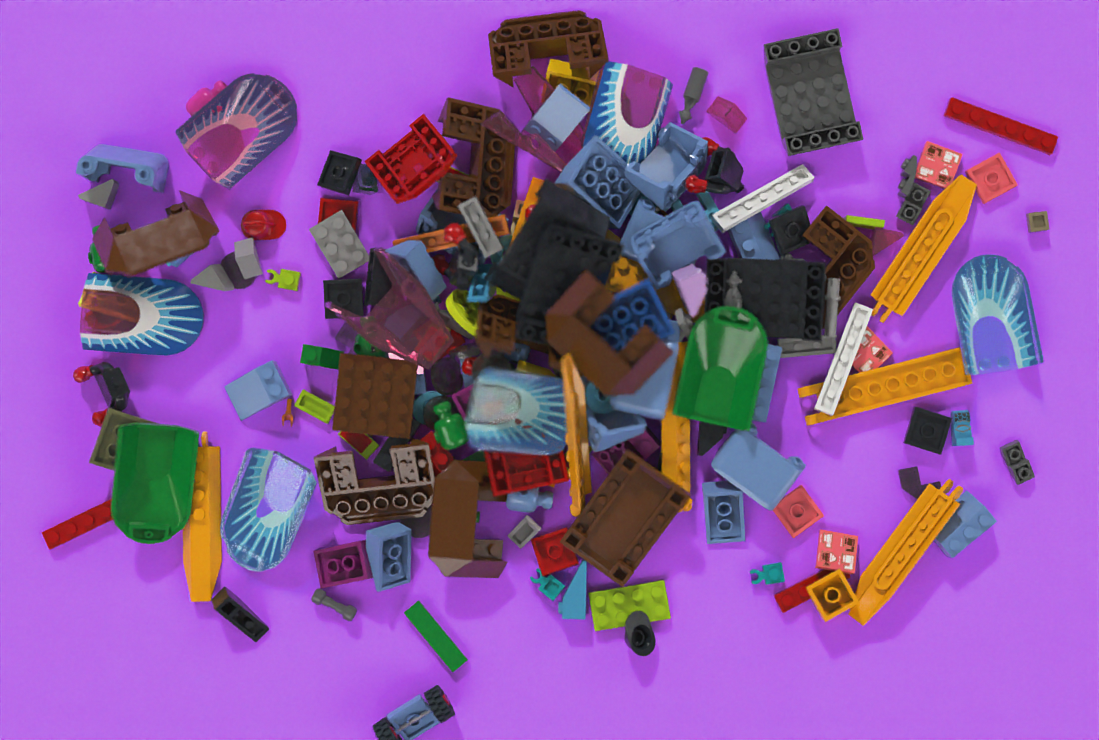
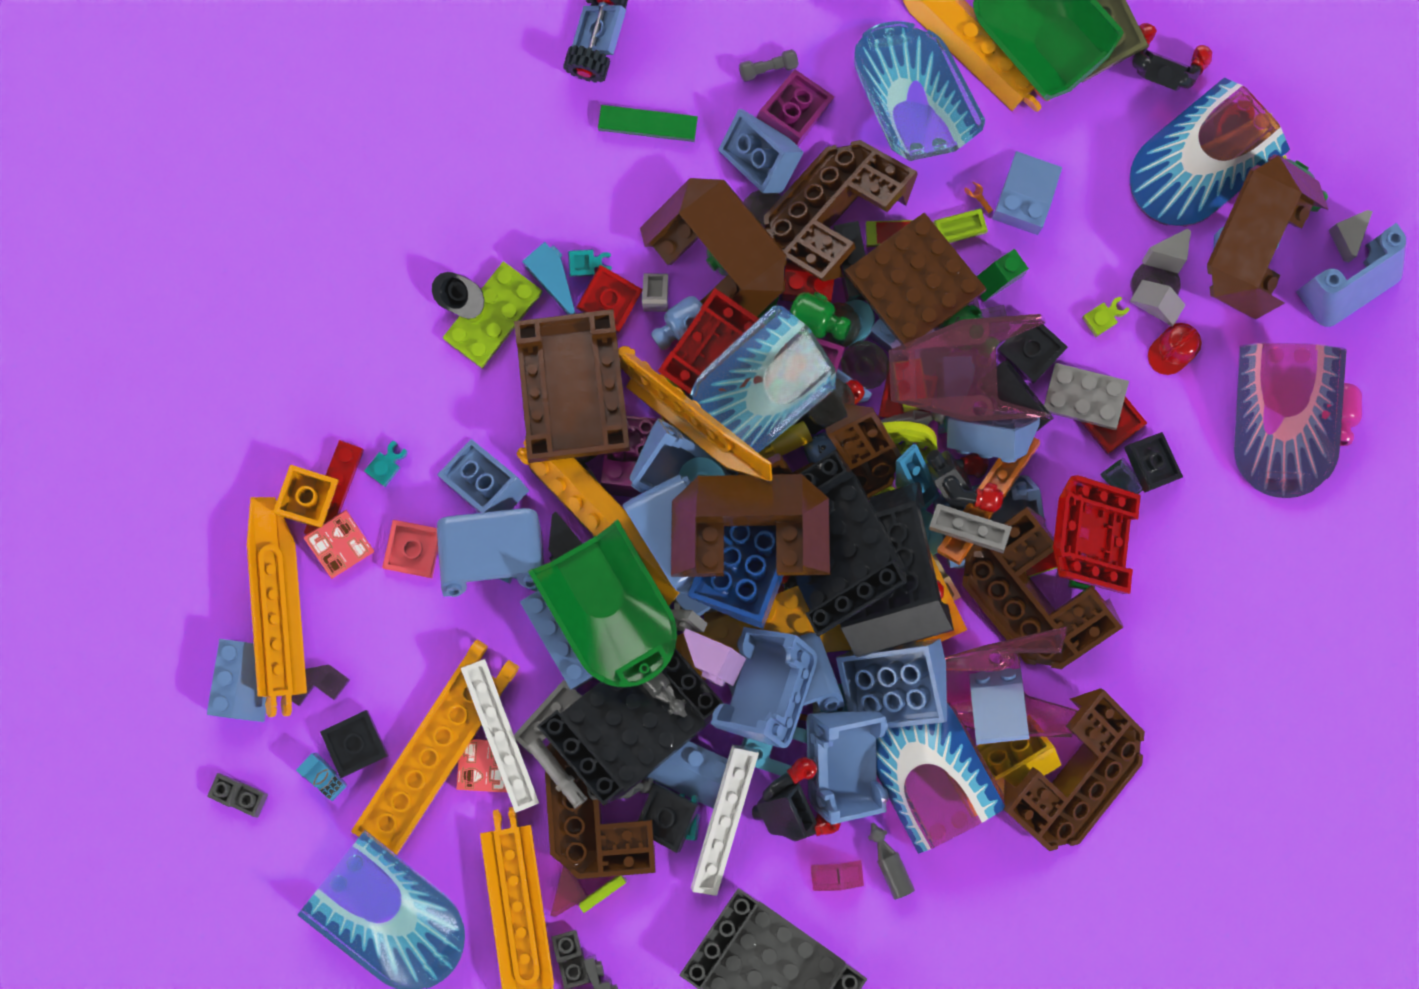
camera: 140 degrees right, 5 degrees down
(465, 351) = (873, 396): clear smoke tile -> none

